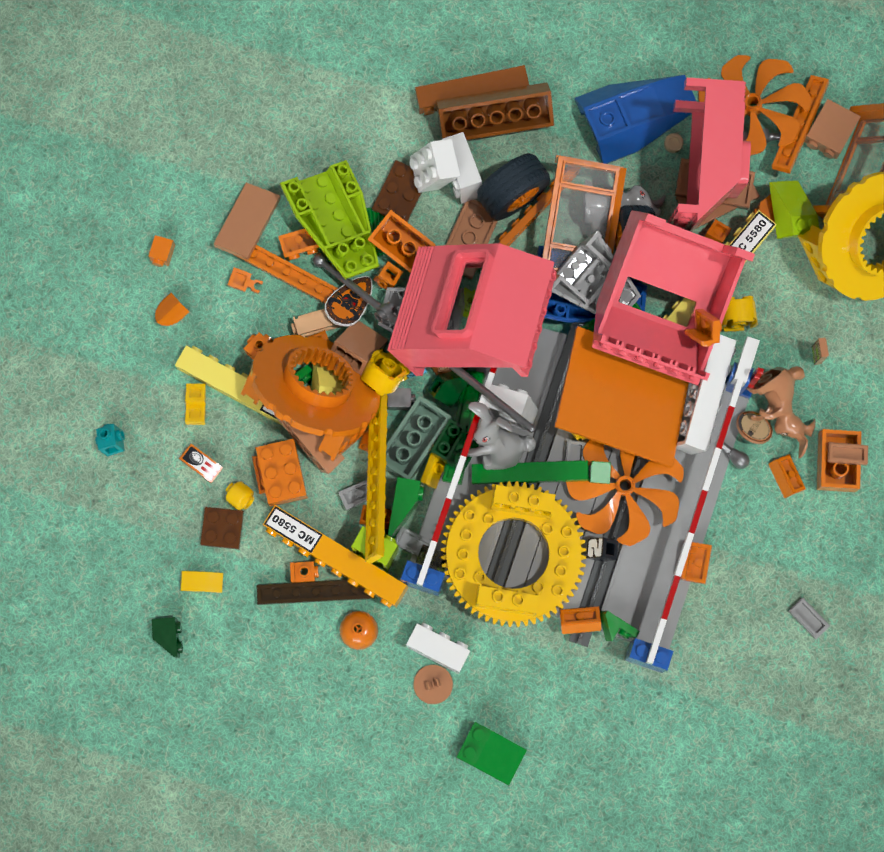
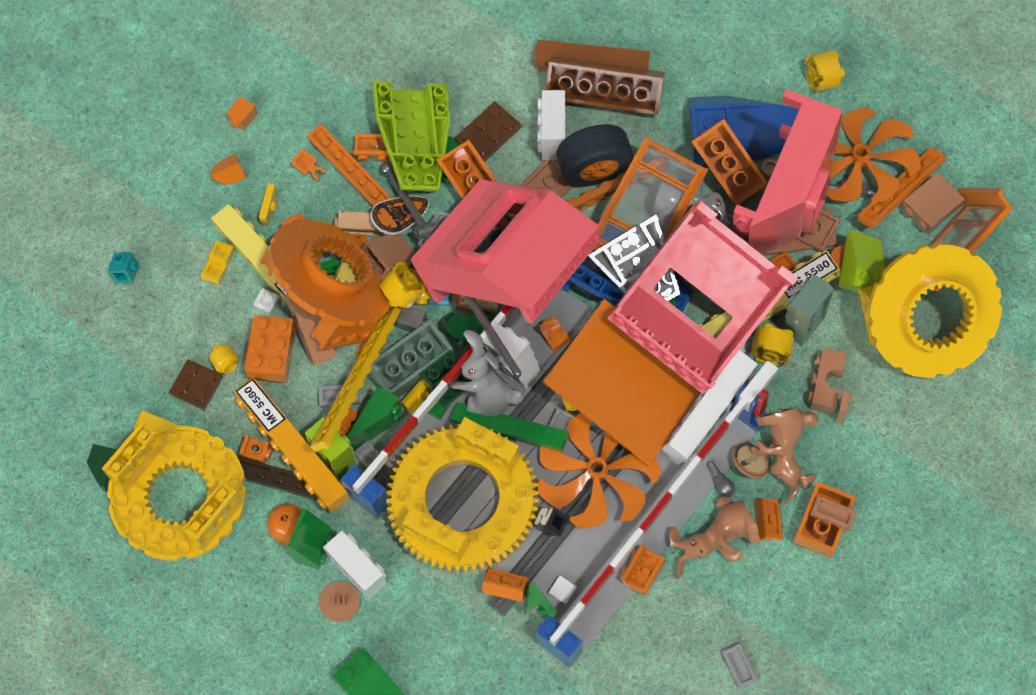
camera: 25 degrees right, 10 degrees down
(200, 463) = (200, 317): slope -> none
(206, 617) = (144, 459): none -> yellow piece
(223, 332) = (269, 204): none -> yellow plate
(247, 221) = (331, 111): nougat tile -> none
(256, 425) = (266, 301): none -> white tile
(384, 278) = (440, 203): orange brick -> none
(390, 640) = (309, 539): none -> green slope
(434, 165) = (525, 112): white brick -> none
(540, 371) = (554, 333): none -> orange bracket
(600, 472) = (577, 446): slope -> none
(631, 606) = (562, 590): none -> white tile
(638, 152) = (728, 162): none -> orange brick
(691, 32) = (824, 71): none -> yellow brick
(706, 328) = (730, 340): orange bracket -> none
(757, 494) = (730, 524): none -> nougat animal
(761, 272) = (808, 308): none -> sand green brick
(795, 346) = (824, 397): none -> nougat arch

